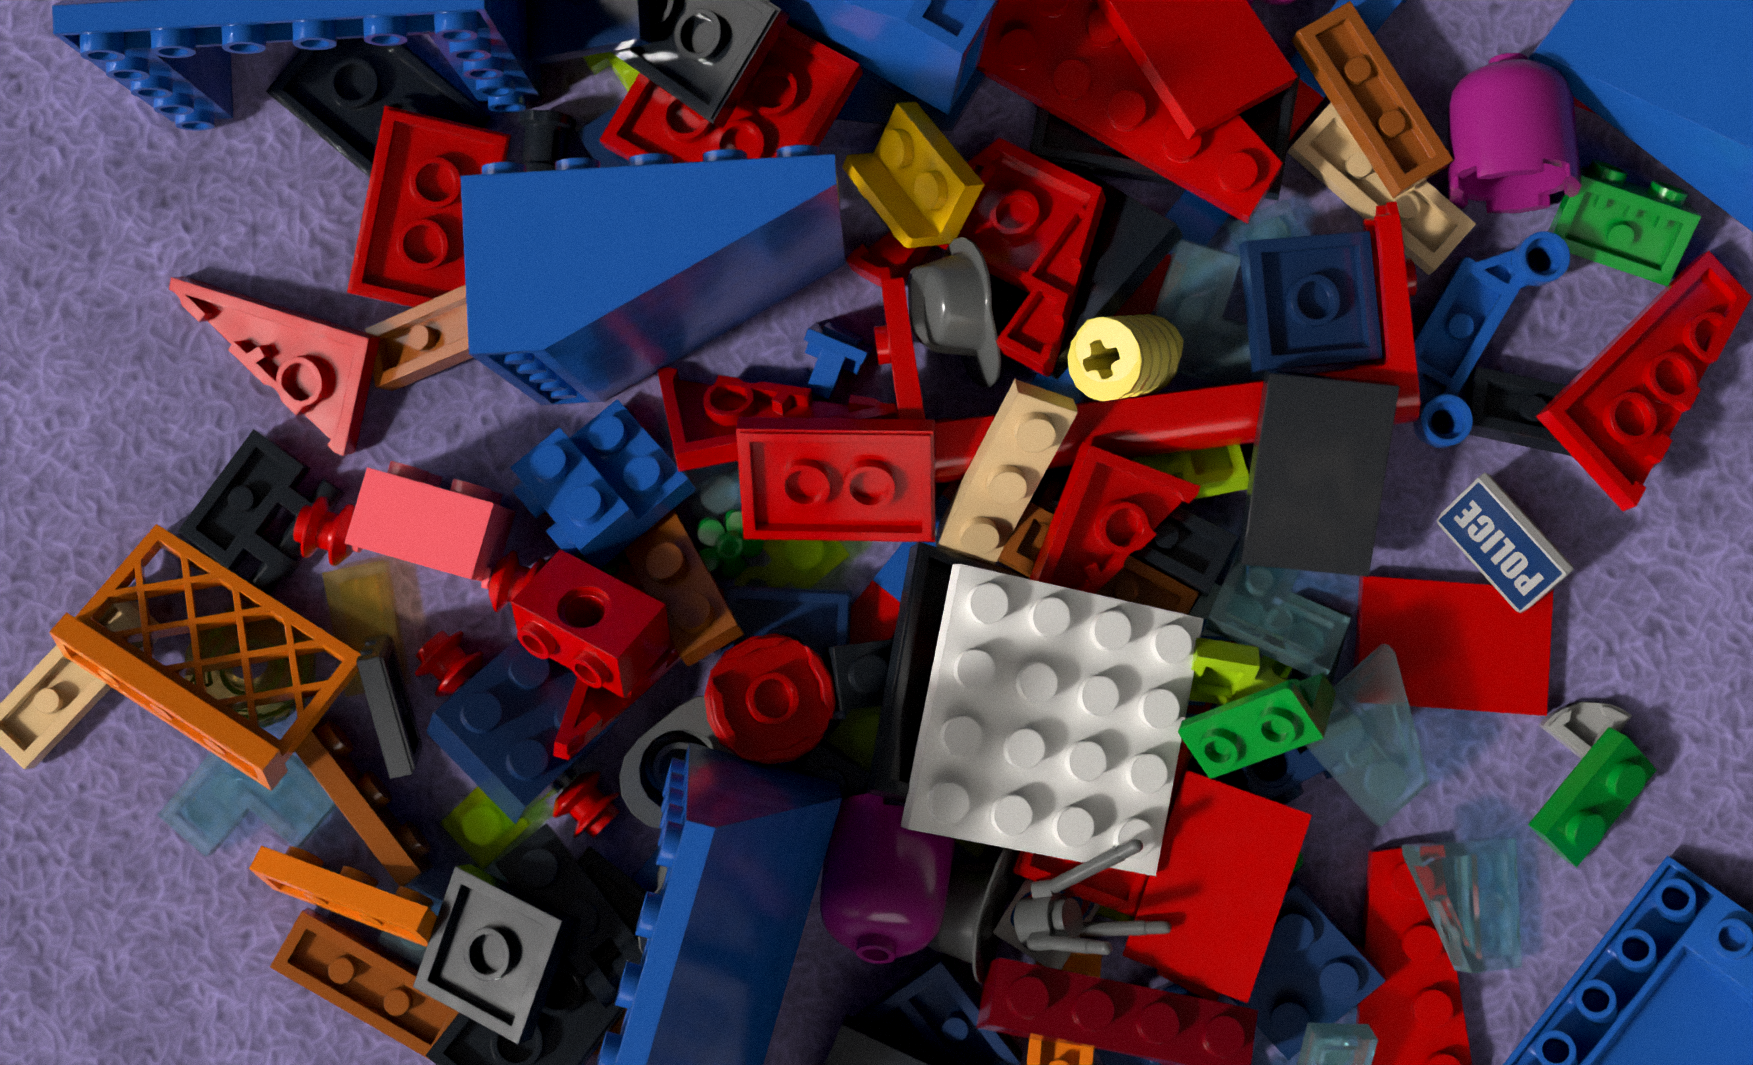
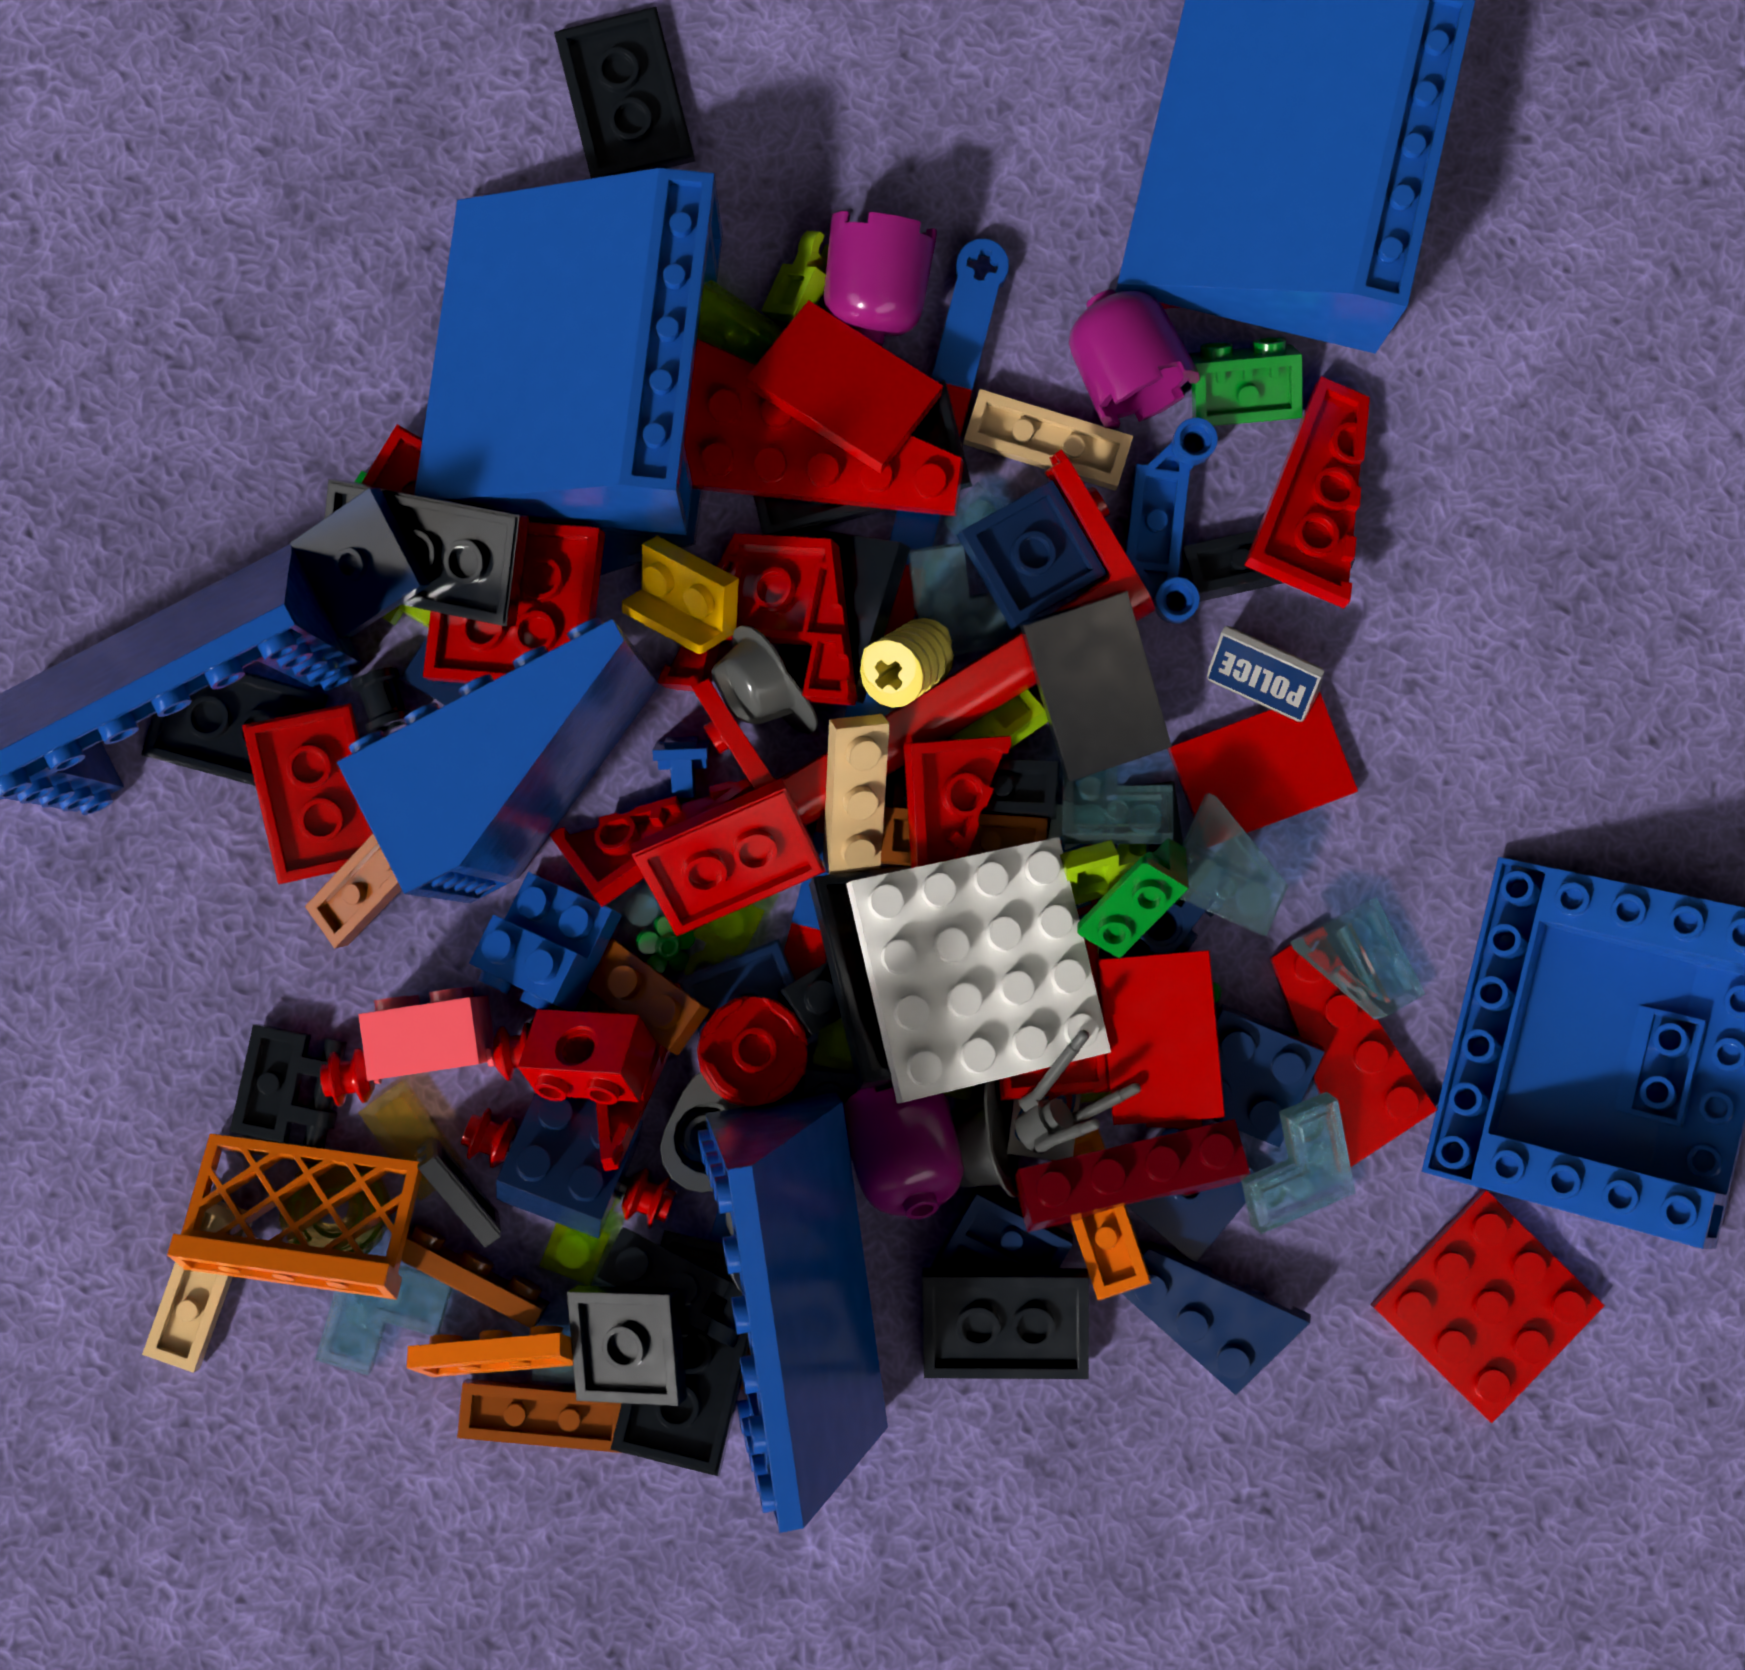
camera: 30 degrees left, 0 degrees up
(308, 360) = (272, 951): wing -> none
(1371, 99) = (1009, 376): dark orange plate -> none
(1583, 724) = (1393, 786): light grey tile -> none
(1592, 796) = (1421, 838): green plate -> none

